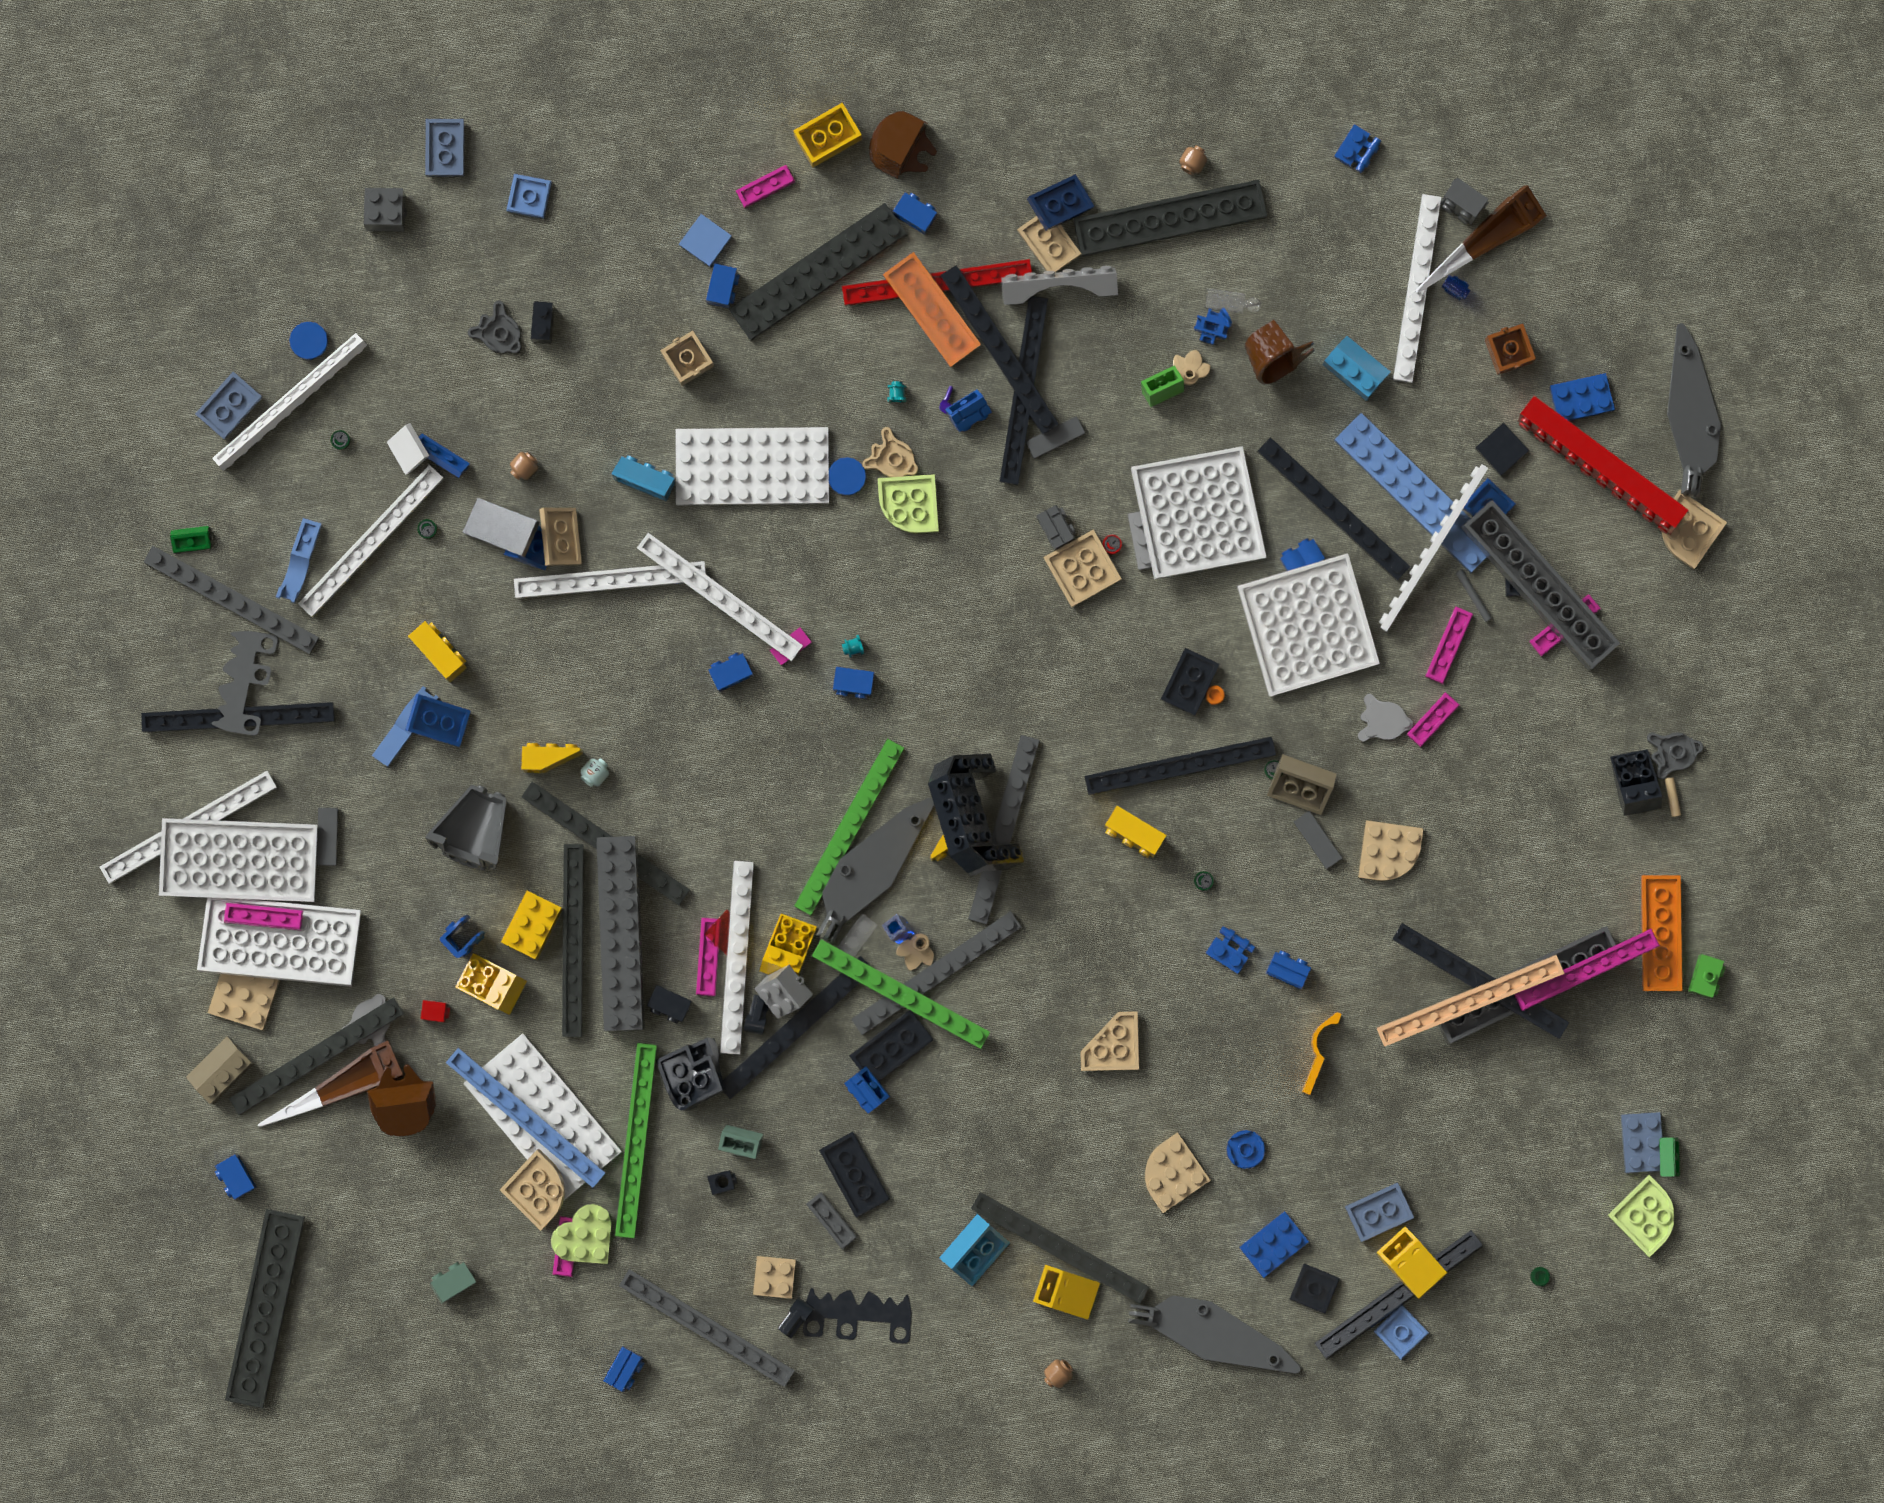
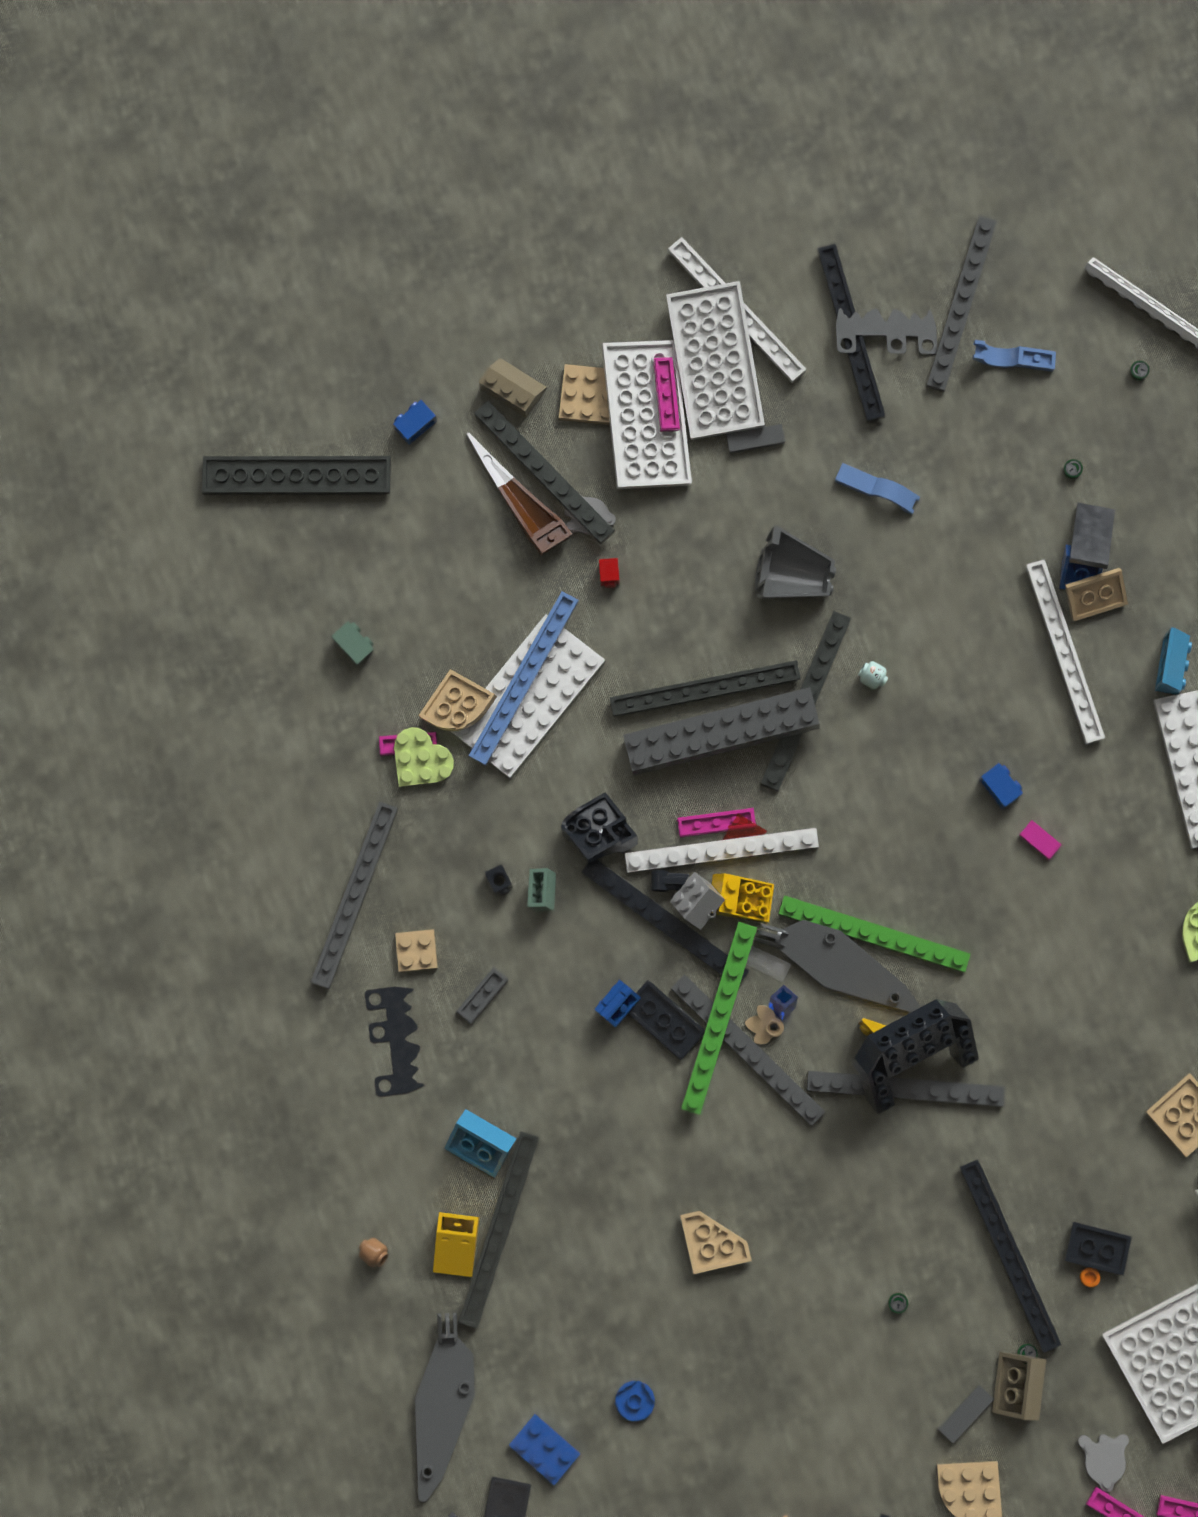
camera: 85 degrees right, 5 degrees down
(190, 539) = (1010, 254): green slope -> none
(228, 405) = (1147, 260): sand blue plate -> none
(371, 541) = (1049, 419): white plate -> none
(402, 1105) = (512, 559): reddish brown piece -> none
(407, 448) = (1147, 432): white tile -> none
(437, 720) = (890, 515): blue plate -> none
(438, 651) = (957, 501): yellow brick -> none
(444, 457) = (1147, 465): blue plate -> none
(452, 946) = (675, 575): blue piece -> none
(491, 984) = (646, 620): yellow slope -> none
(523, 466) = (1157, 546): medium nougat head -> none
(531, 925) = (711, 646): yellow brick -> none
(542, 759) = (875, 624): yellow slope -> none
(623, 1369) = (300, 823): blue brick -> none
(636, 1140) = (523, 789): bright green plate -> none
(669, 1004) = (662, 793): black brick -> none
(719, 596) = (1073, 759): white plate -> none
(798, 1313) = (384, 981): black piece -> none
(853, 646) = (1054, 900): teal brick -> none
(853, 682) = (1019, 908): blue brick -> none
(854, 1174) = (532, 1008): black tile -> none
(1134, 832) = (932, 1221): yellow brick -> none
(1173, 1173) = (596, 1330): tan plate -> none
(1227, 955) = (828, 1341): blue plate -> none
(1288, 970) = (826, 1409): blue brick -> none
(1317, 1063) = (742, 1459): light orange piece -> none

